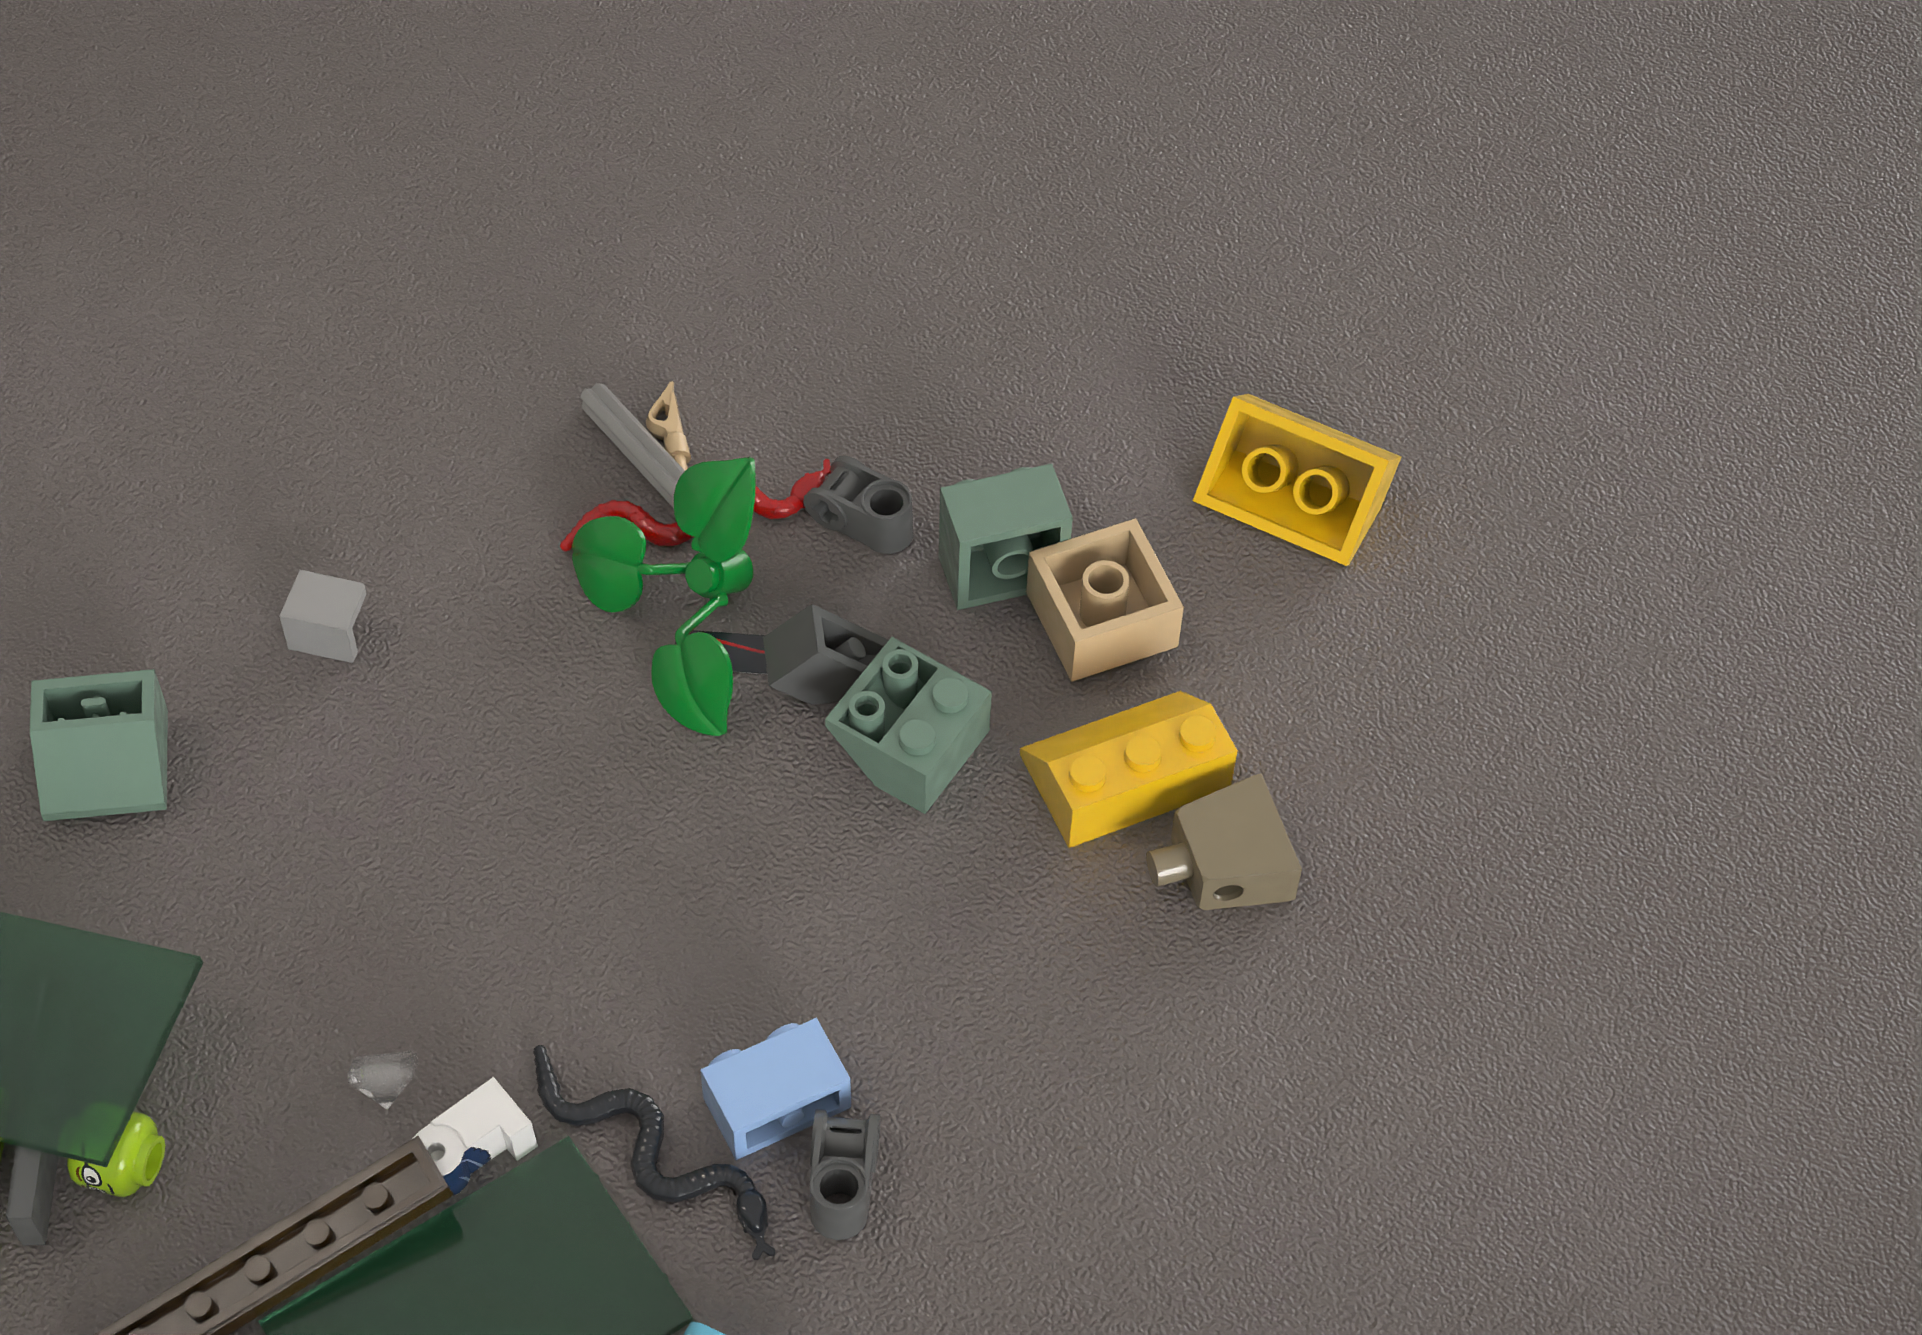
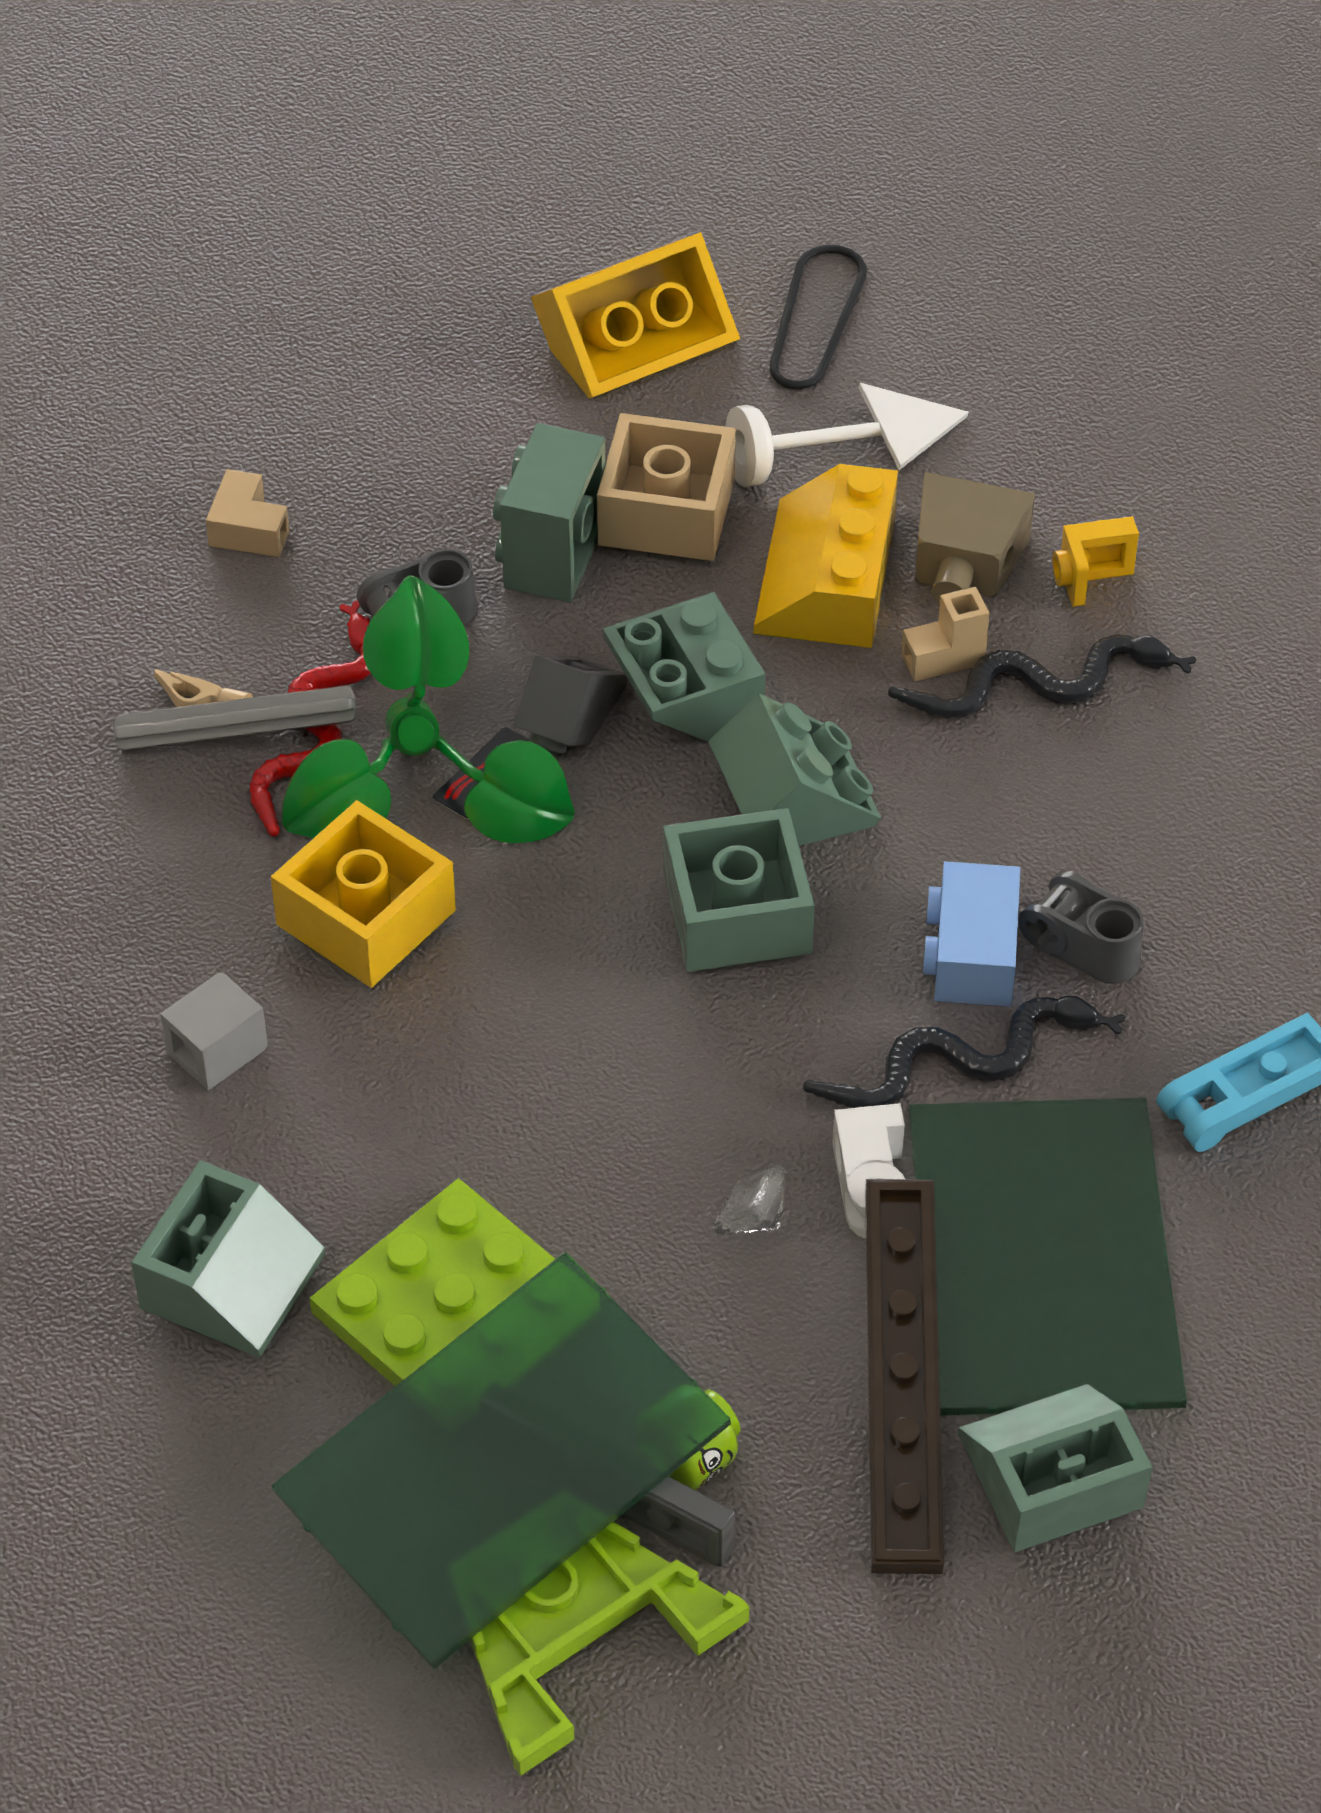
camera: 55 degrees left, 5 degrees down
(187, 899) = (428, 1281): none -> lime plate
(513, 633) = (363, 893): none -> yellow brick
(690, 884) = (738, 889): none -> sand green brick
(859, 863) = (792, 761): none -> sand green slope
(867, 345) = (242, 518): none -> tan piece
(1100, 897) = (951, 642): none -> tan piece
(1215, 1054) = (1143, 649): none -> black animal
(1292, 953) = (1094, 552): none -> yellow bracket
(1339, 736) = (904, 422): none -> white piece
(1352, 644) = (862, 268): none -> black piece

